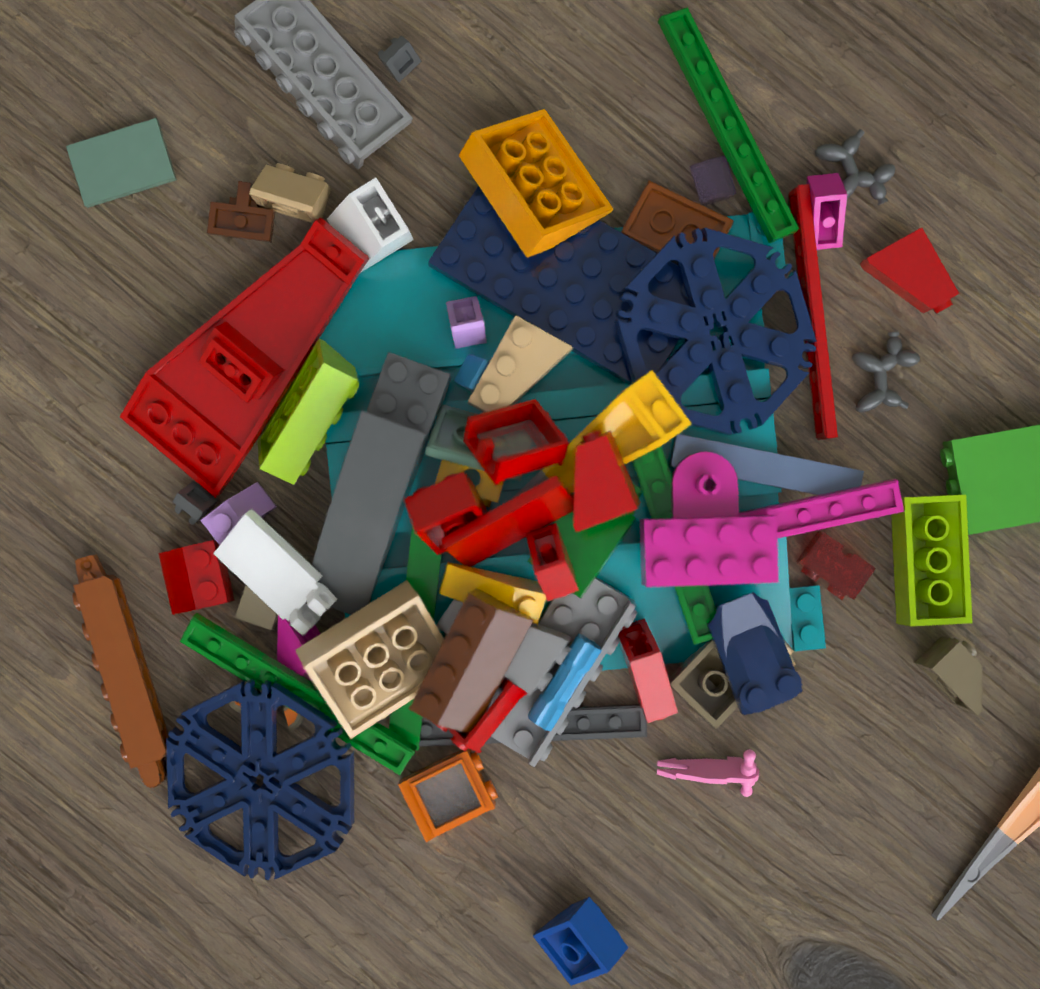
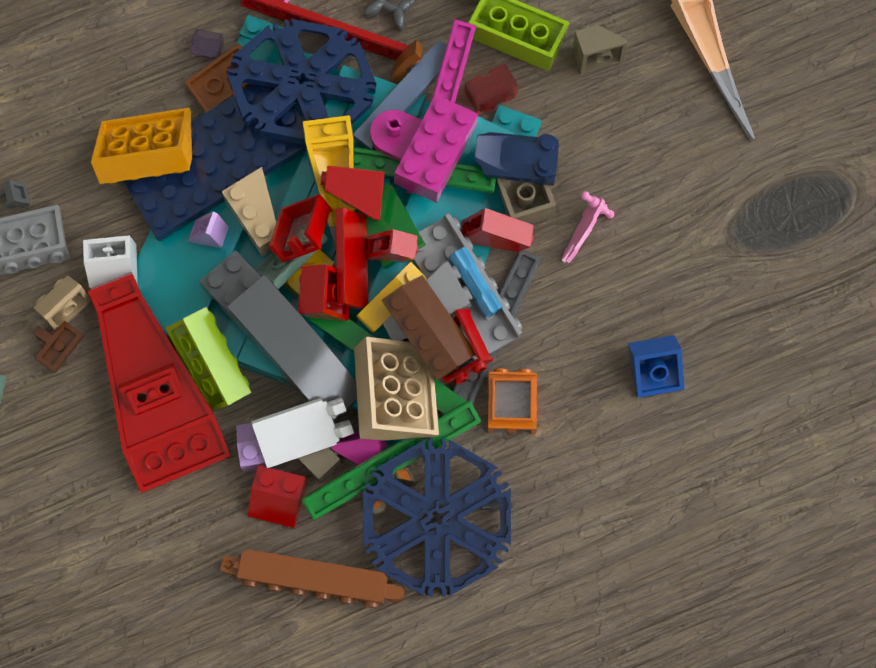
camera: 60 degrees left, 15 degrees down
(194, 501) = (225, 470): dark grey tile -> none
(471, 372) = (242, 241): dark azure slope -> none
(728, 125) = (177, 18): green tile -> none
(815, 443) = (407, 58): none -> dark orange slope

